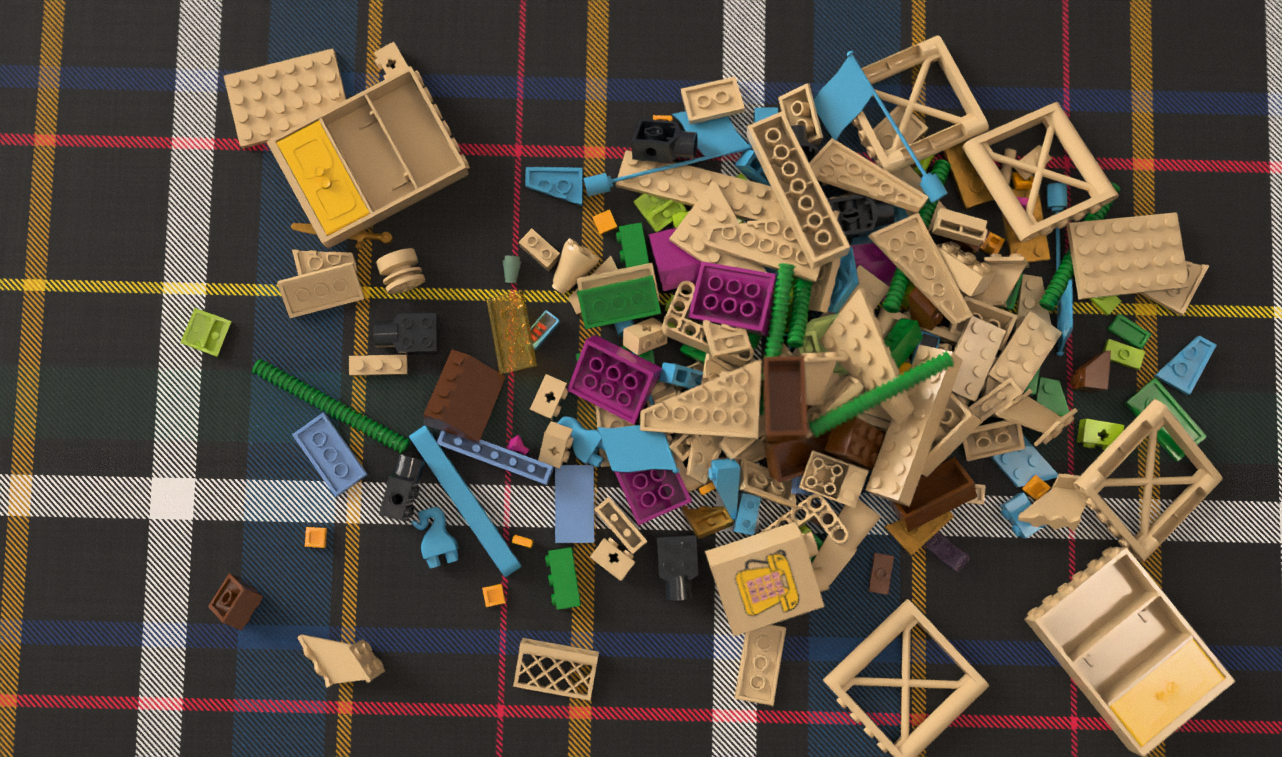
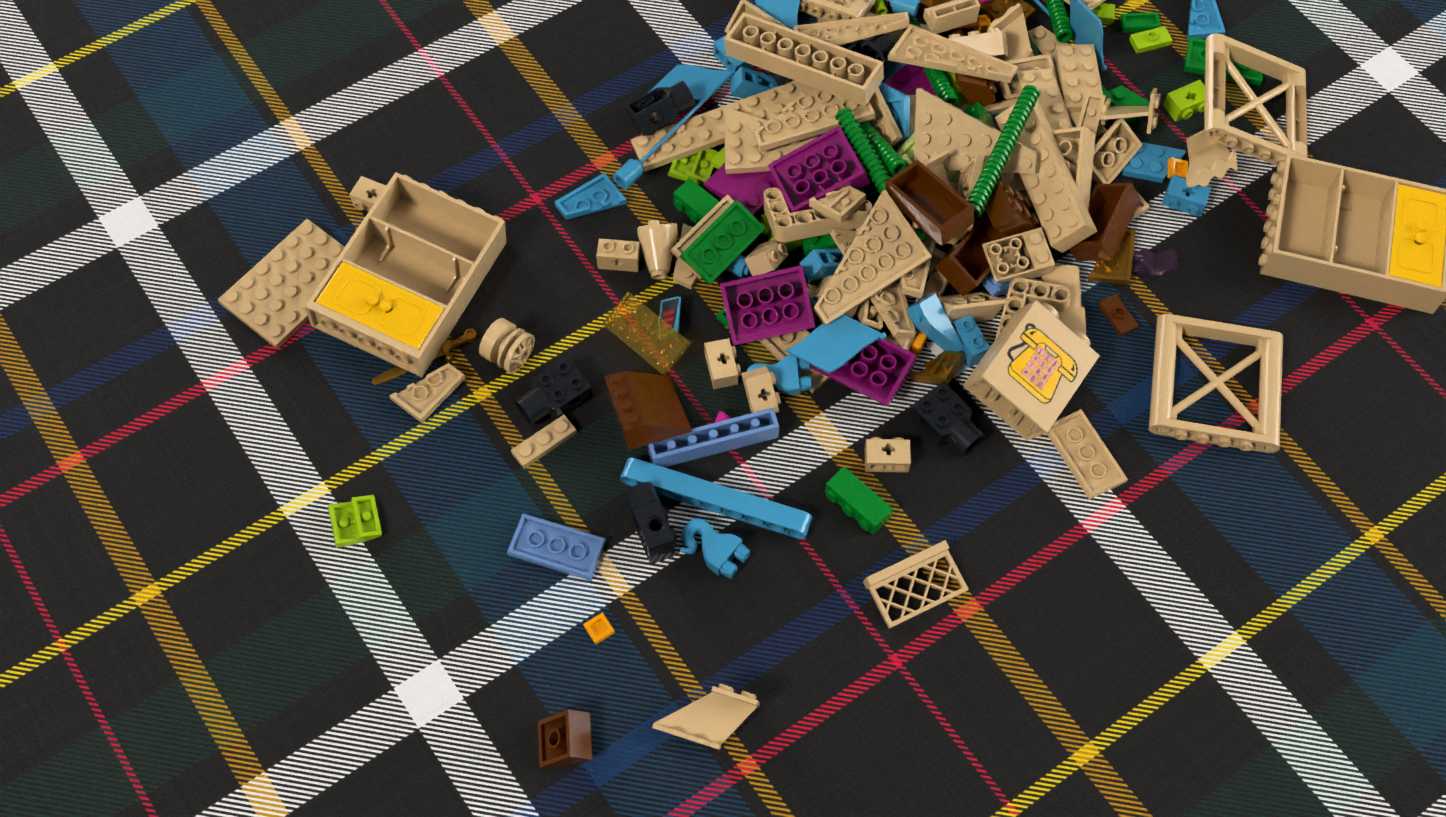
camera: 35 degrees left, 20 degrees down
(321, 290) = (442, 410): tan plate -> none
(330, 405) = (524, 503): green piece -> none
(494, 595) = (806, 562): light orange tile -> none
(511, 268) = (604, 286): sand green cone -> none
(523, 541) = (796, 495): light orange tile -> none
(574, 504) = (815, 436): medium blue tile -> none
(604, 222) = (656, 203): light orange tile -> none
(620, 525) = (871, 420): tan brick -> none
(712, 100) = (673, 61): tan plate -> none
(1093, 374) = (1144, 61): reddish brown slope -> none

